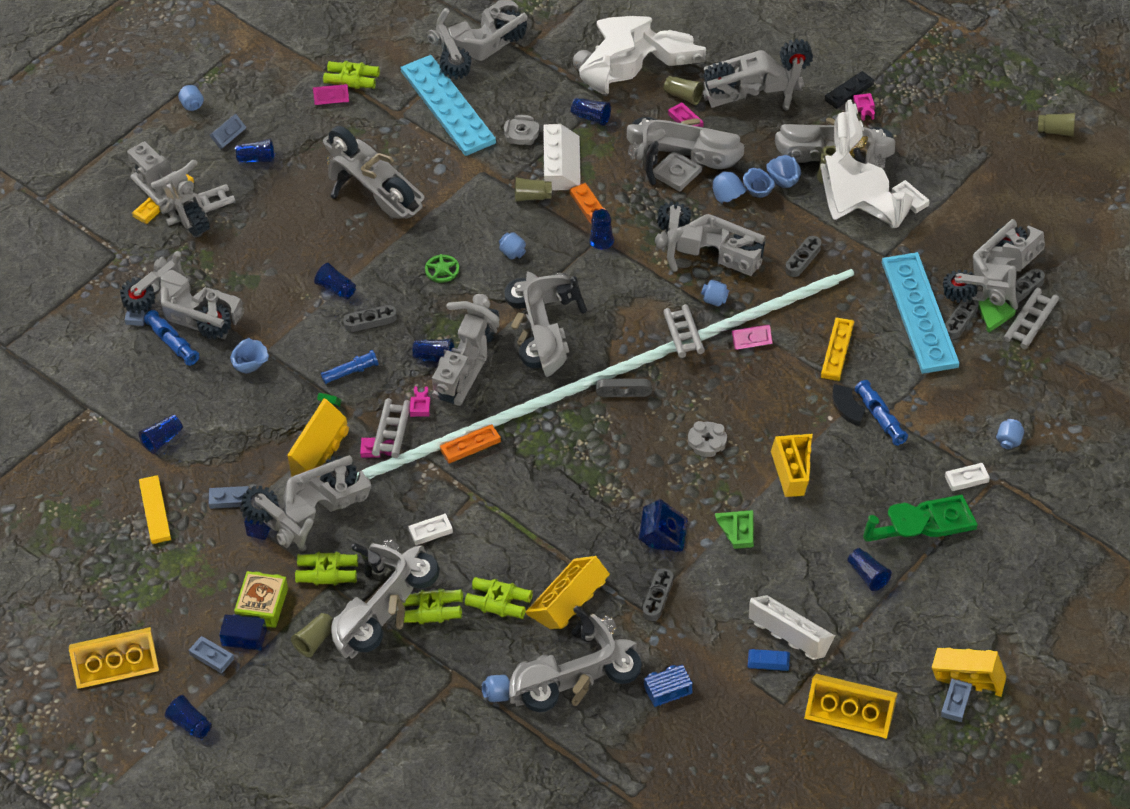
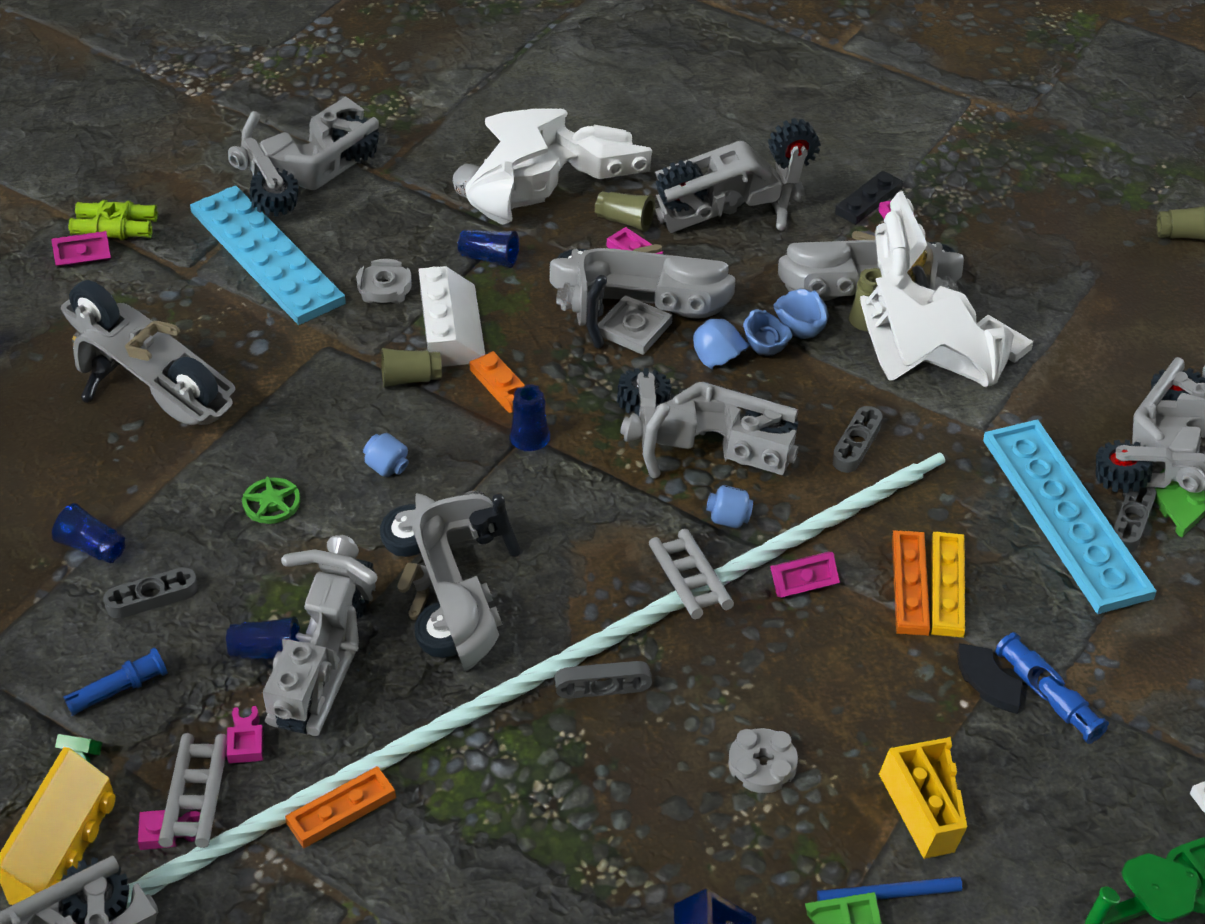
camera: 10 degrees left, 5 degrees down
(769, 511) = (897, 890): none -> blue bar
(815, 346) = (910, 583): none -> orange tile

